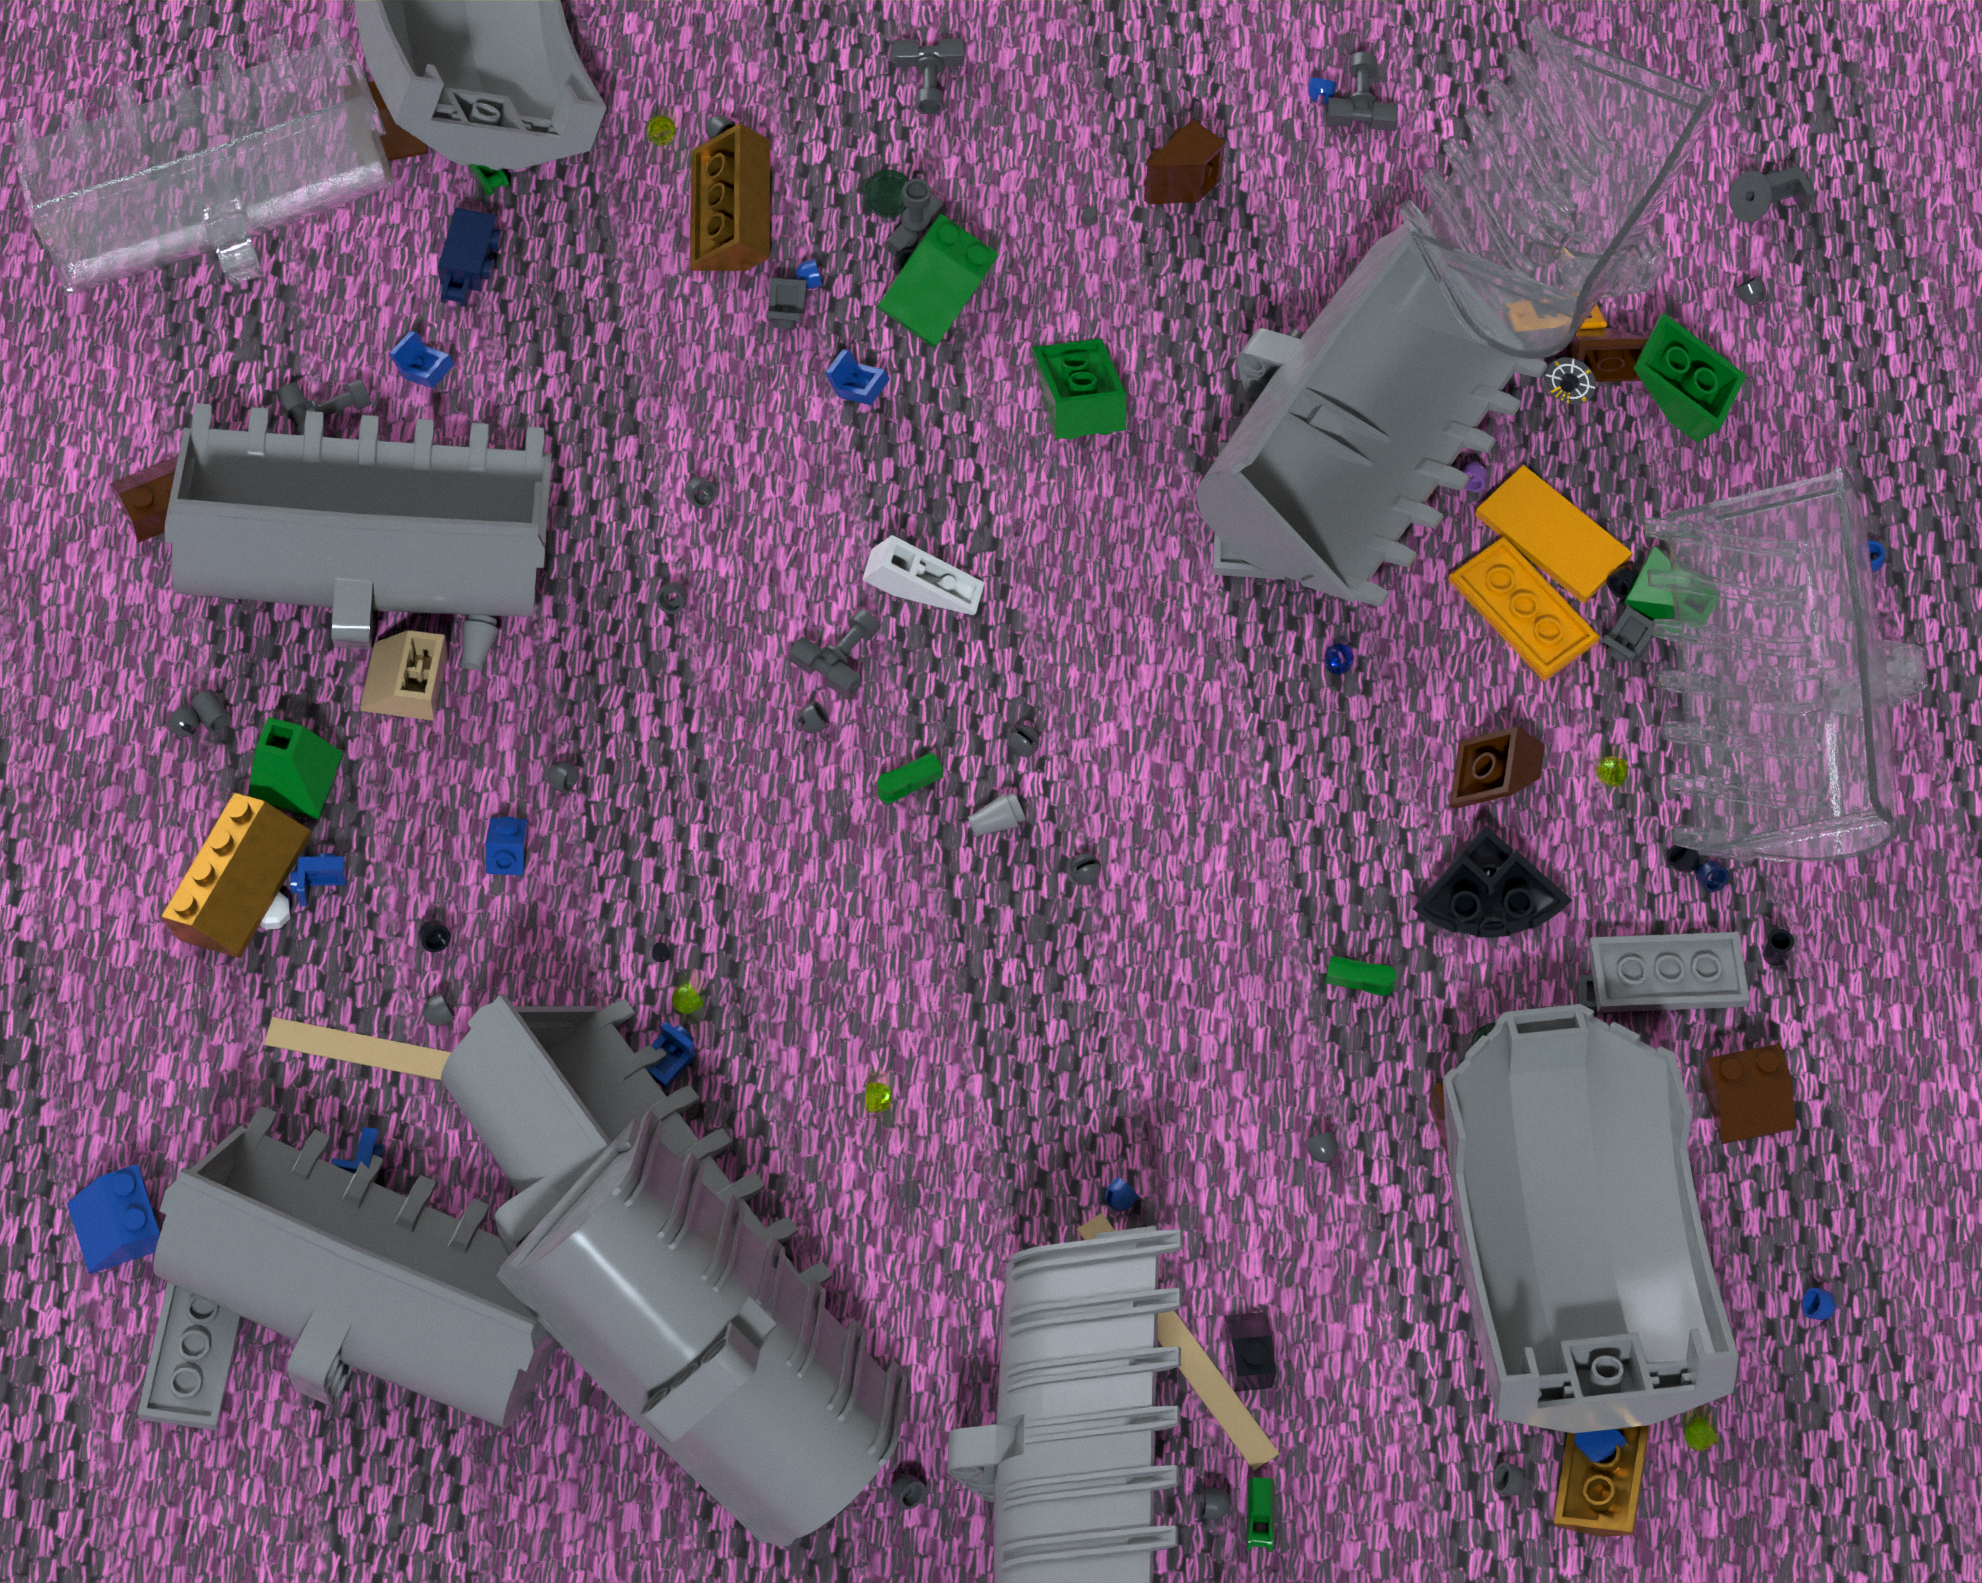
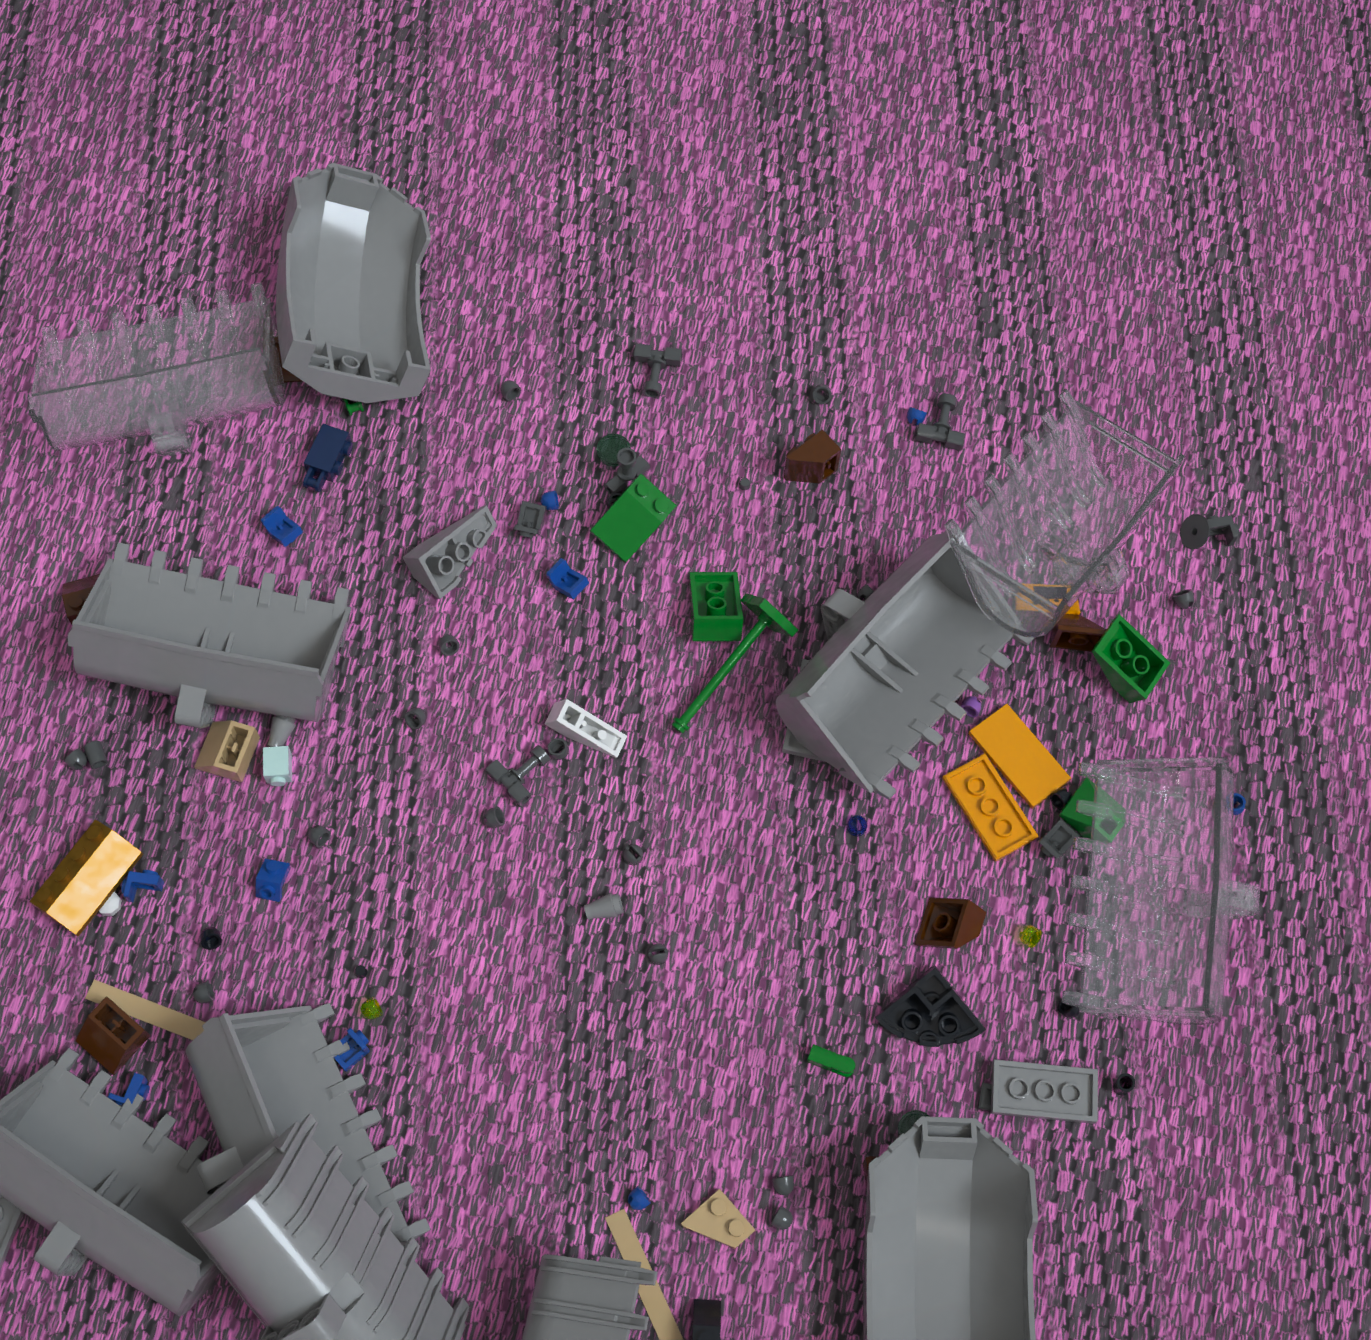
camera: 10 degrees right, 5 degrees up
(293, 768) = (140, 806): green slope -> none
(296, 406) = (200, 551): dark grey bar -> none
(318, 1082) = (111, 1035): none -> reddish brown slope
(483, 688) = (277, 765): none -> light aqua brick
(659, 125) = (470, 382): clear neon green hinge -> none
(669, 370) = (443, 556): none -> light grey wedge
(730, 201) = (507, 442): pearl gold slope -> none
(877, 1097) = (486, 1101): clear neon green hinge -> none
(883, 611) = (555, 747): none -> dark grey hinge
(908, 778) = (551, 870): green bar -> none
(1162, 388) = (767, 617): none -> green tile
(1177, 83) = (819, 397): none -> dark grey hinge
(1241, 1208) = (719, 1221): none -> tan wing
(1330, 1191) = (782, 1219): none -> dark grey hinge
(1570, 380) = (1049, 648): dark grey piece -> none
(1719, 873) = (1086, 1023): dark blue hinge -> none
(1749, 1093) = (1086, 1191): reddish brown slope -> none

